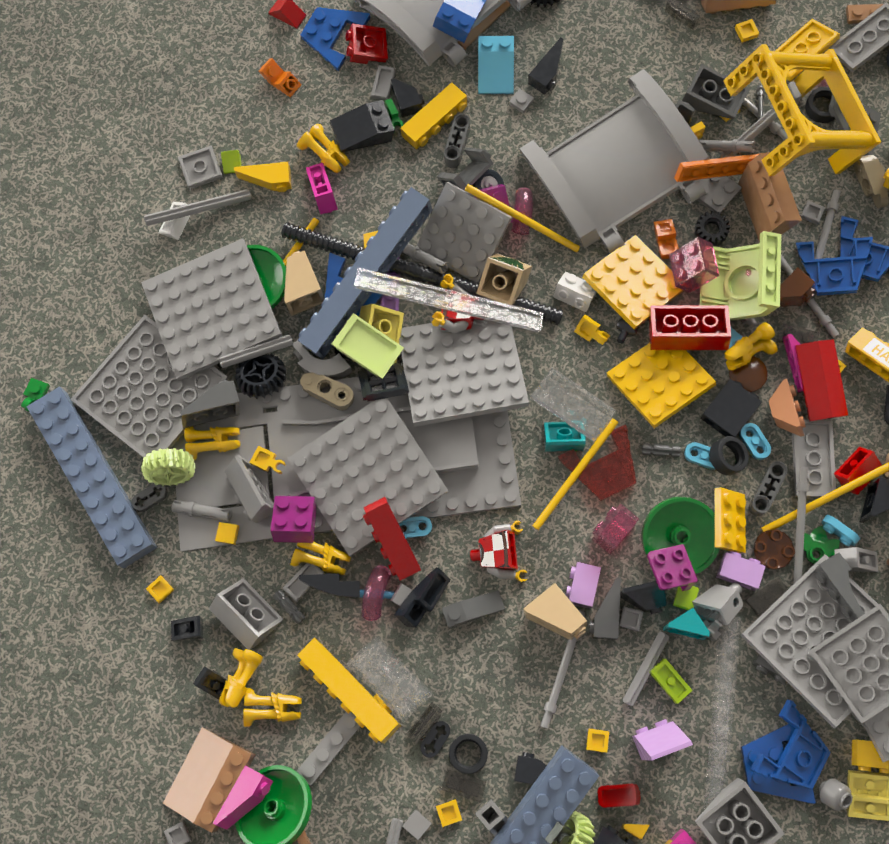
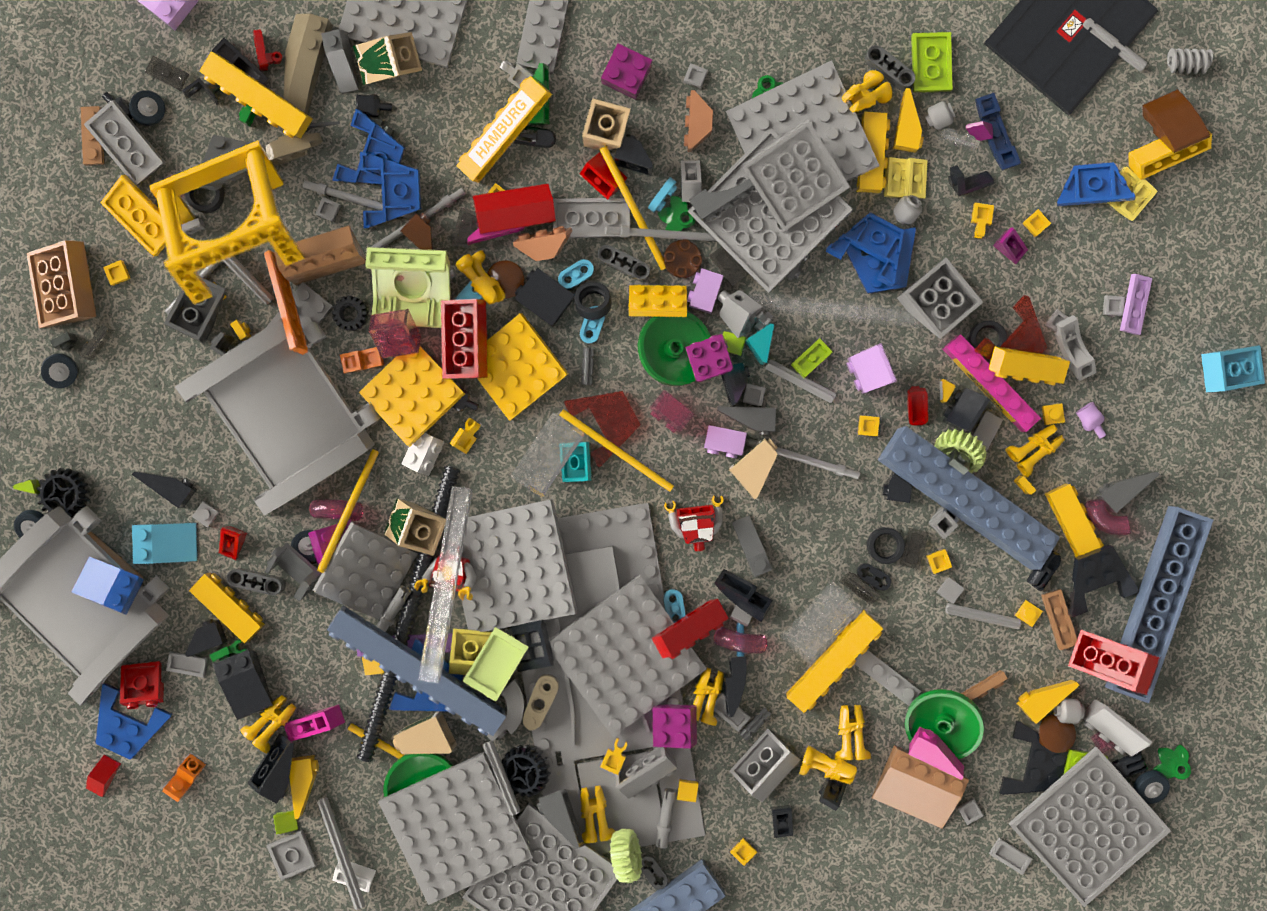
camera: 100 degrees left, 15 degrees up
(273, 146) = (273, 772): none -> black slope
(495, 121) = (231, 541): none -> red slope
(728, 146) = (259, 290): light grey pin -> none

